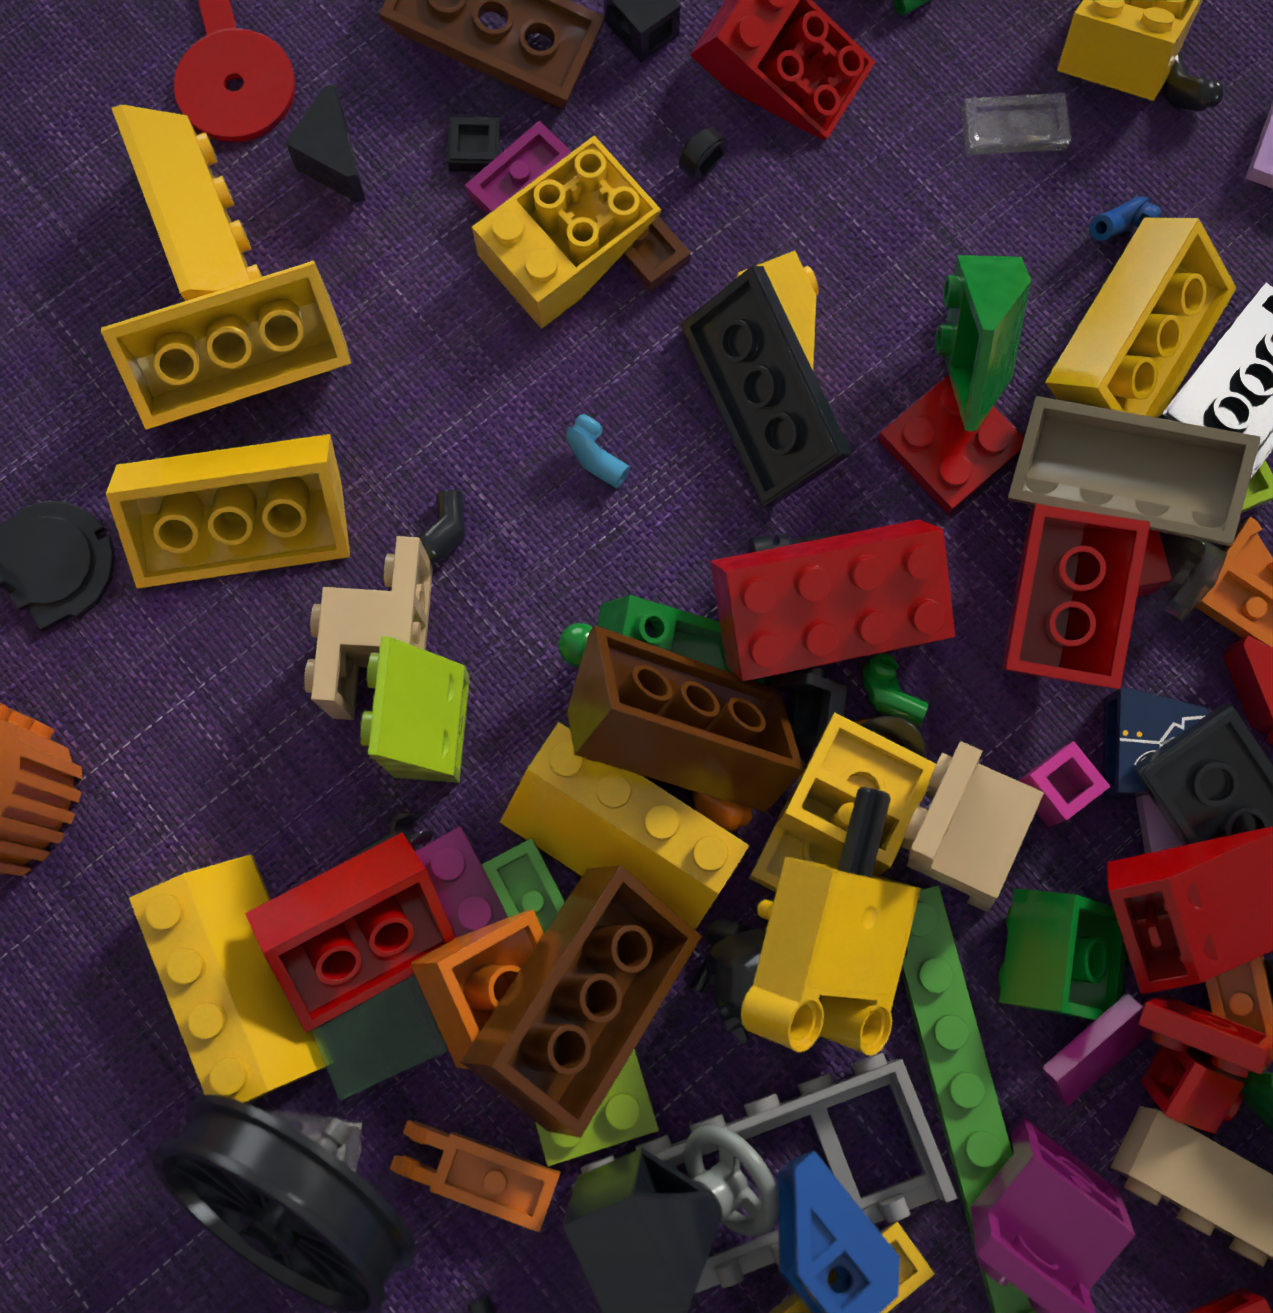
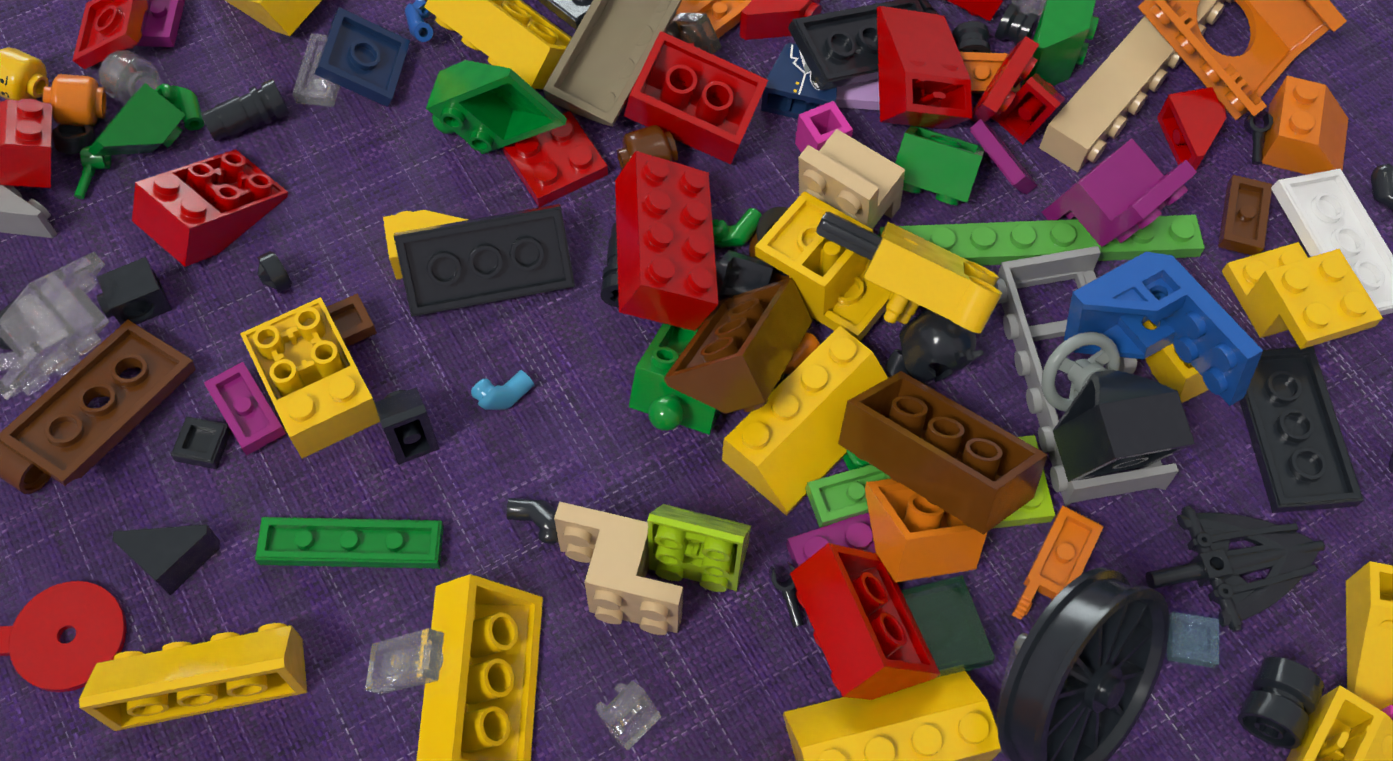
camera: 80 degrees left, 15 degrees down
(217, 678) = (628, 714): none -> clear tile
(228, 345) = (339, 651): yellow slope -> none
(234, 428) = (405, 661): none -> clear plate
(380, 335) = (350, 542): none -> green tile
(524, 348) = (406, 425): none -> black slope
(922, 49) = (245, 111): none -> black axle
(980, 554) = (648, 140): none -> reddish brown head
(1041, 163) = (362, 57): none -> dark blue plate

